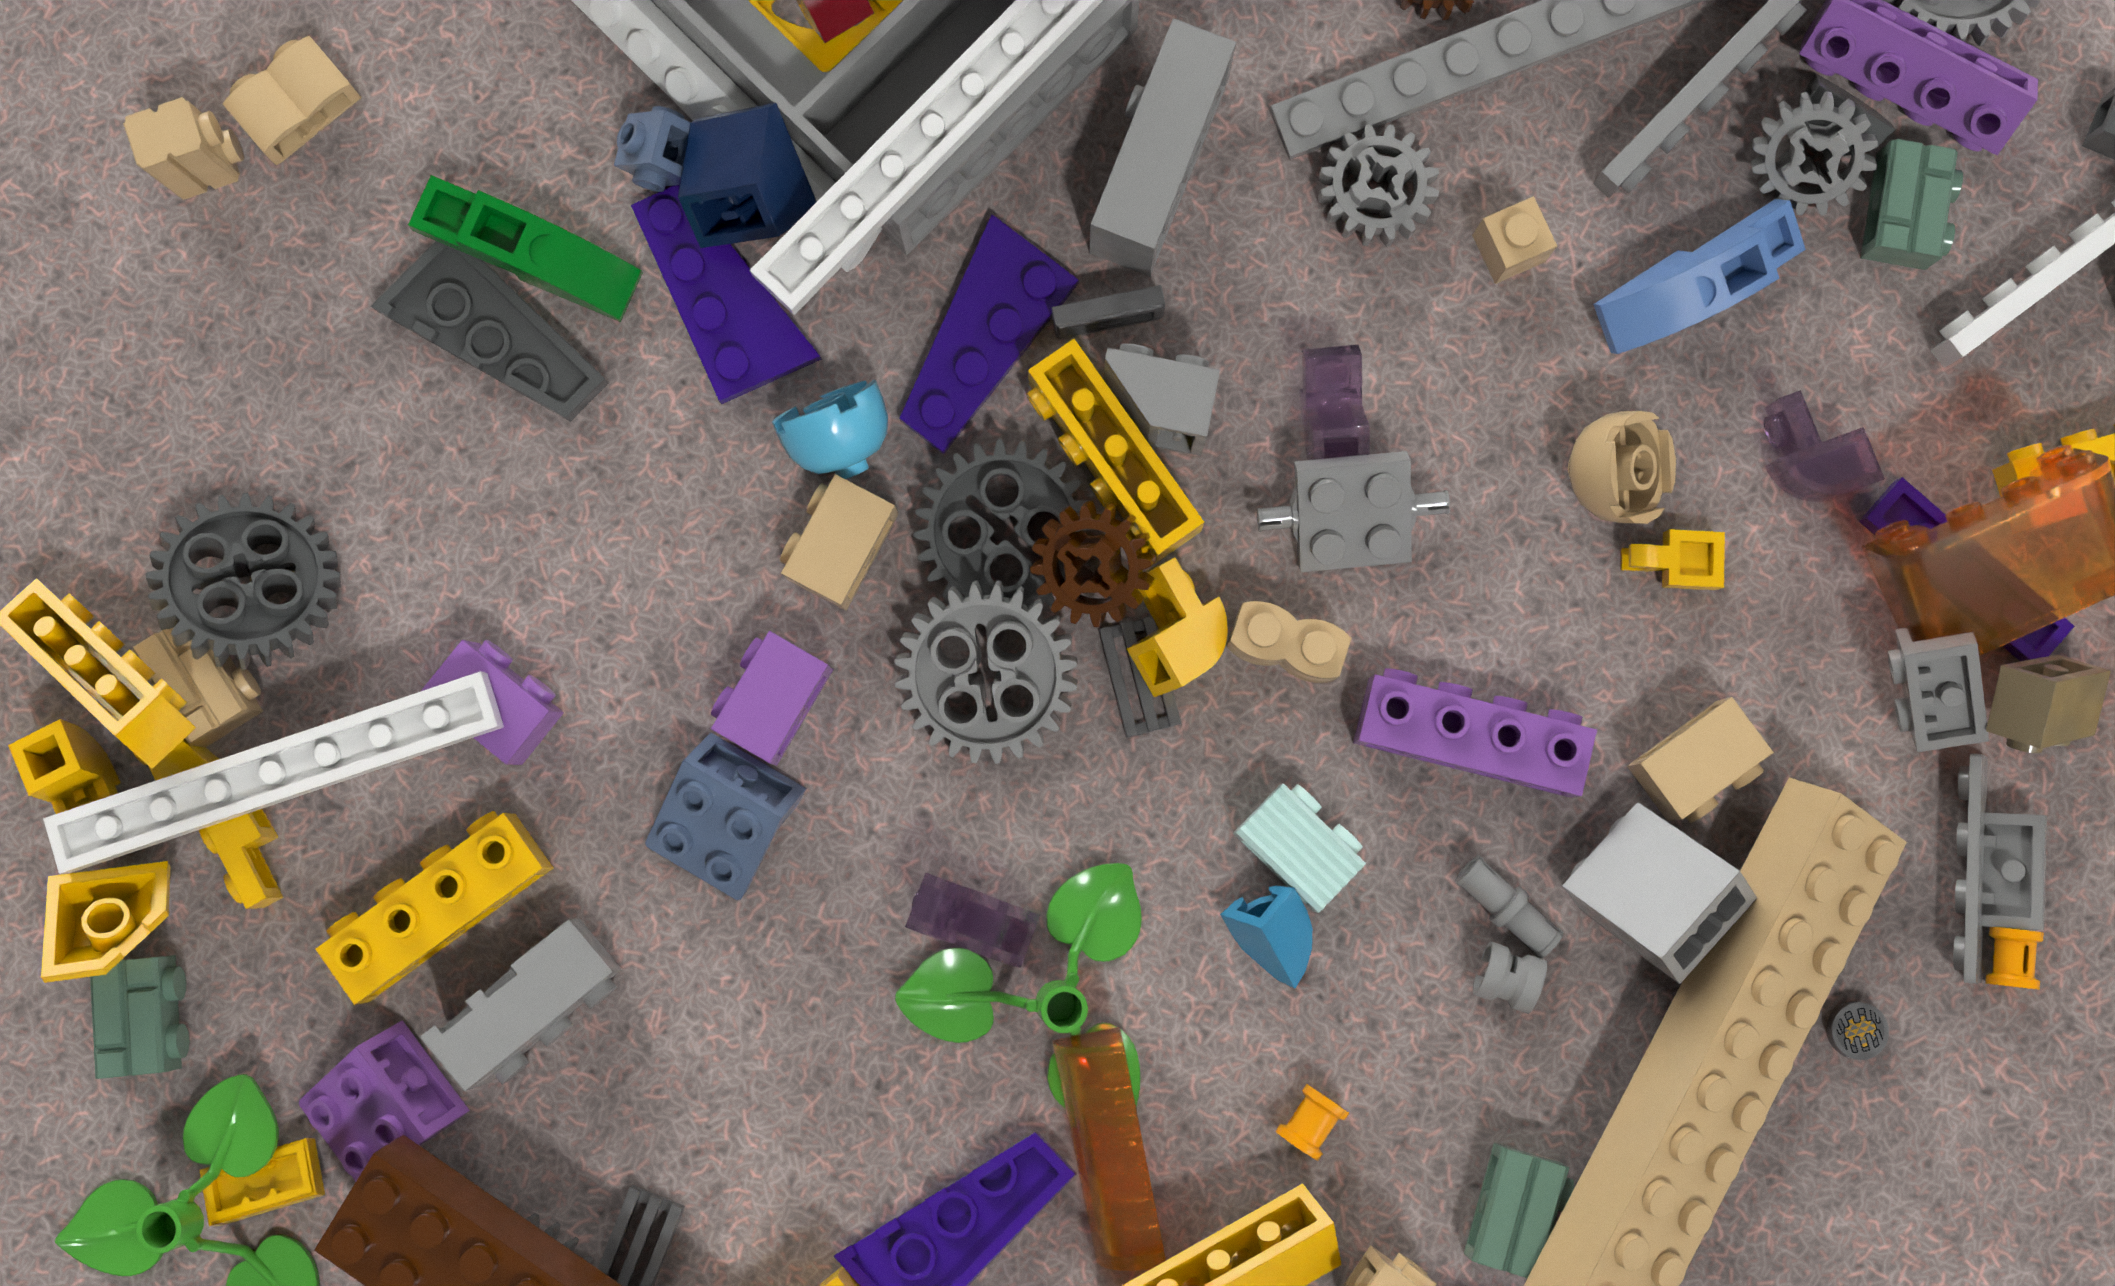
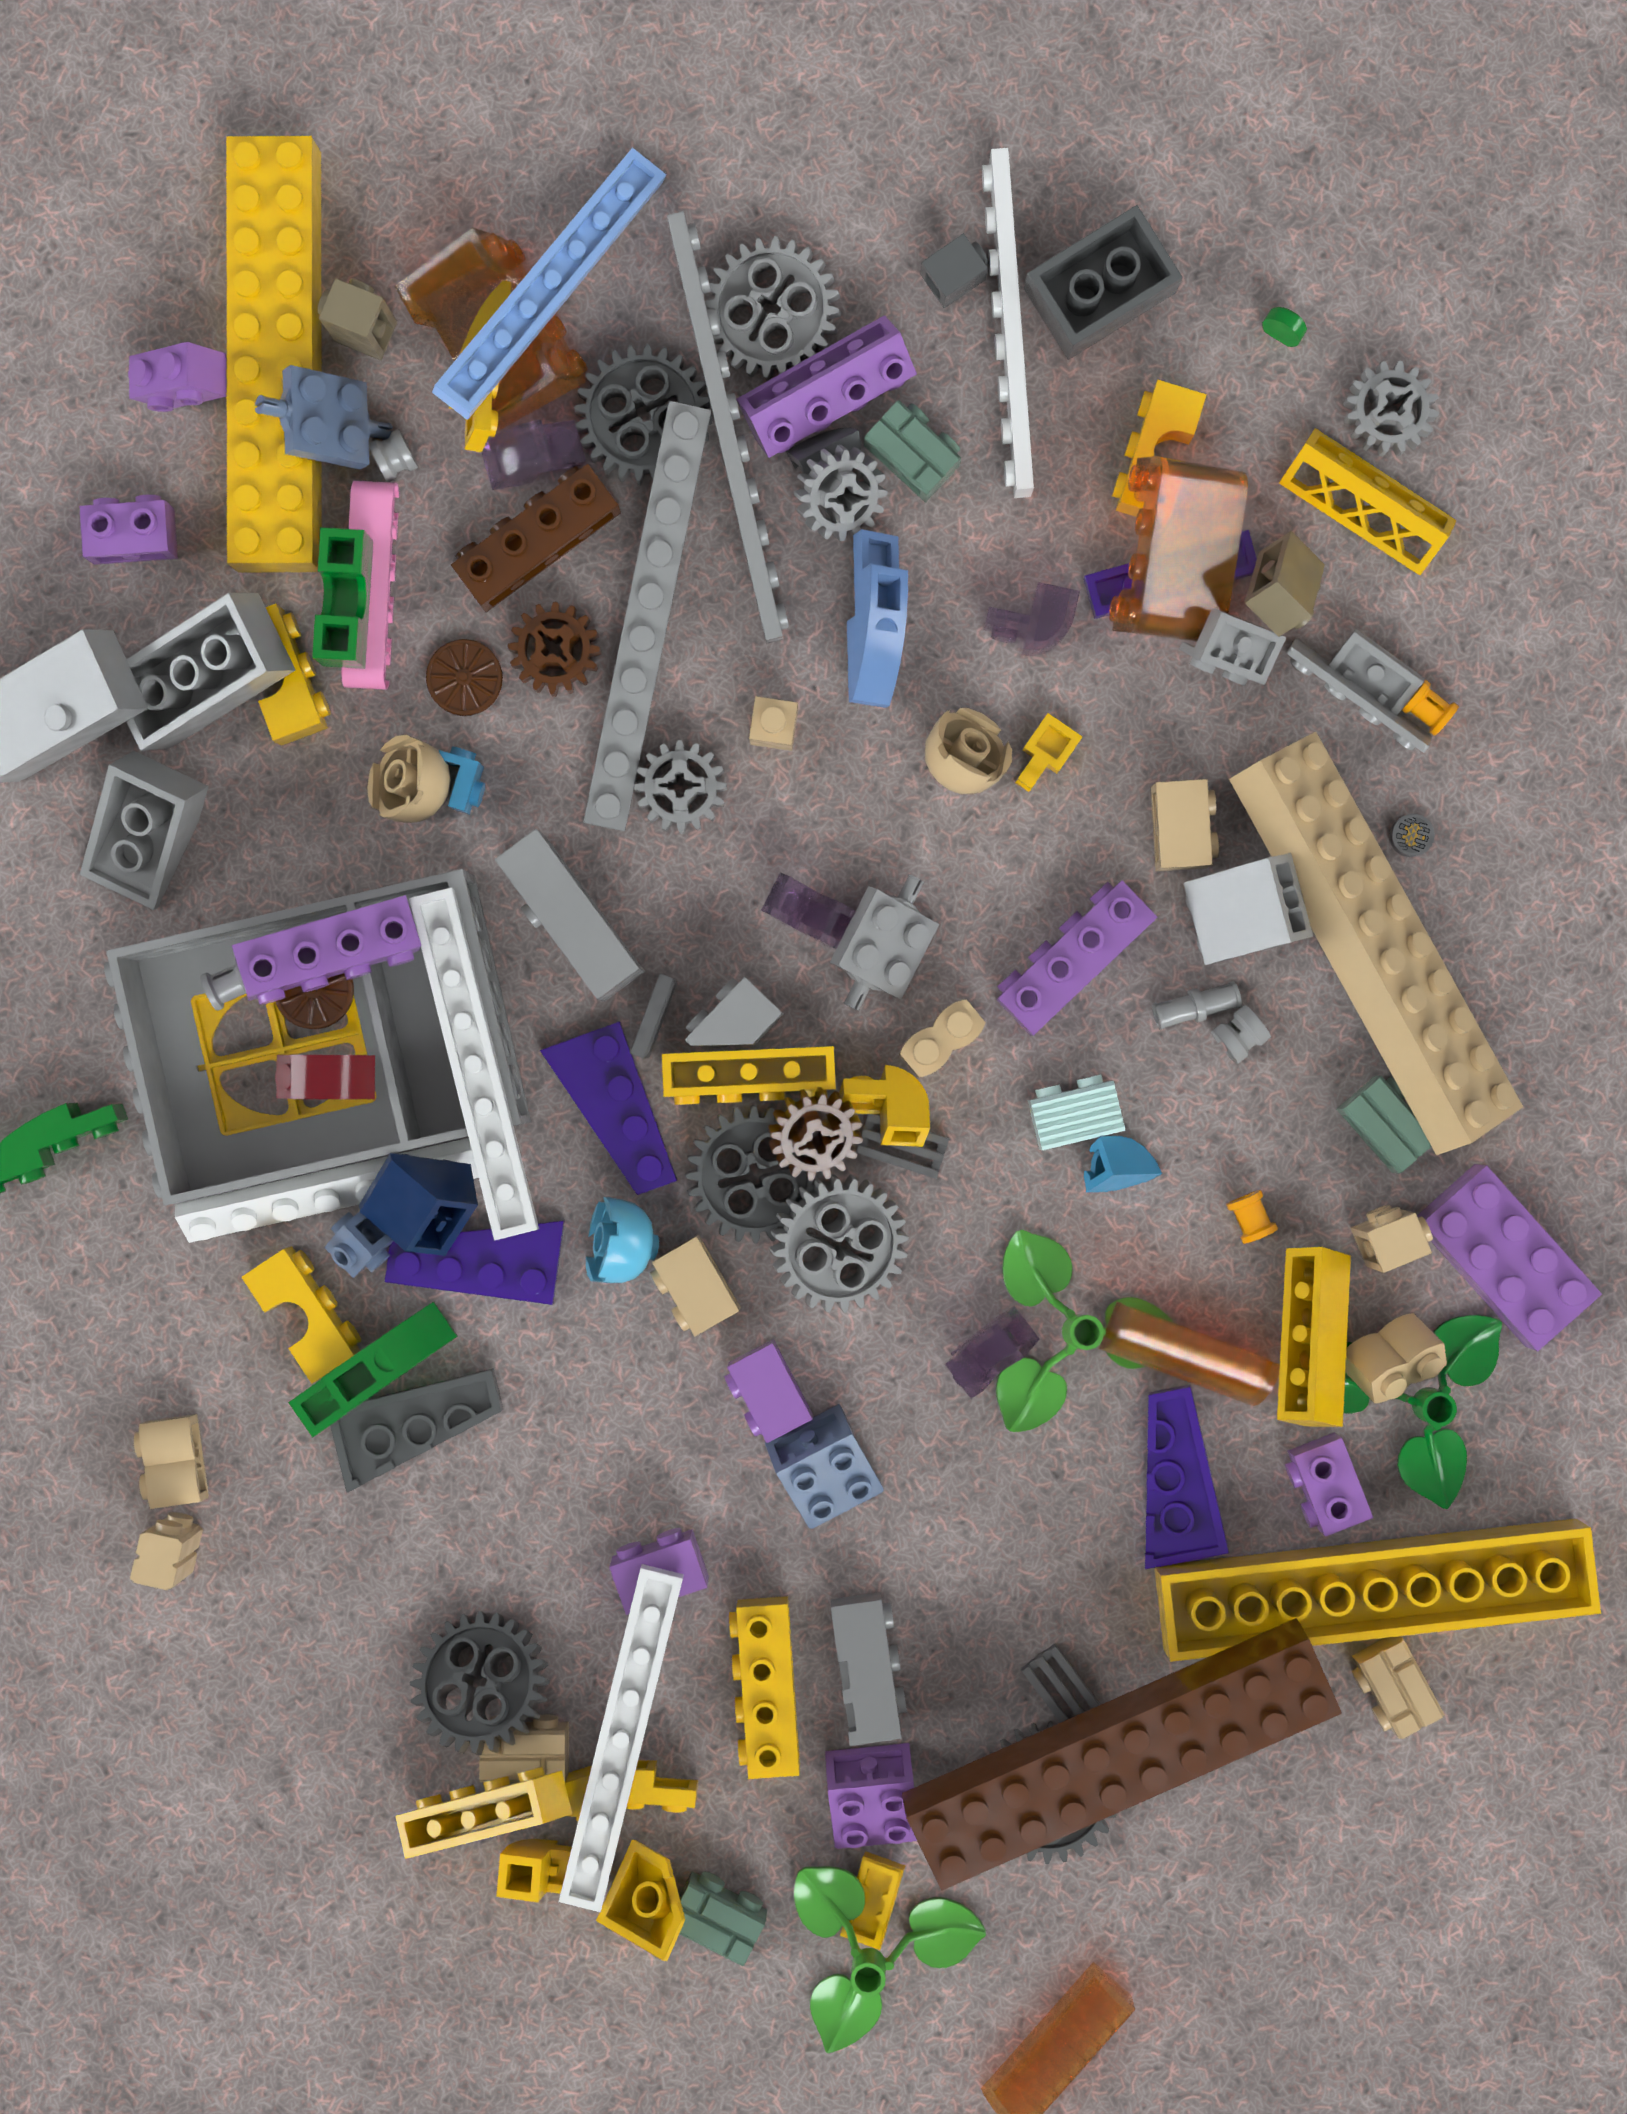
camera: 60 degrees left, 5 degrees up
(570, 98) = (327, 1339): none -> yellow arch

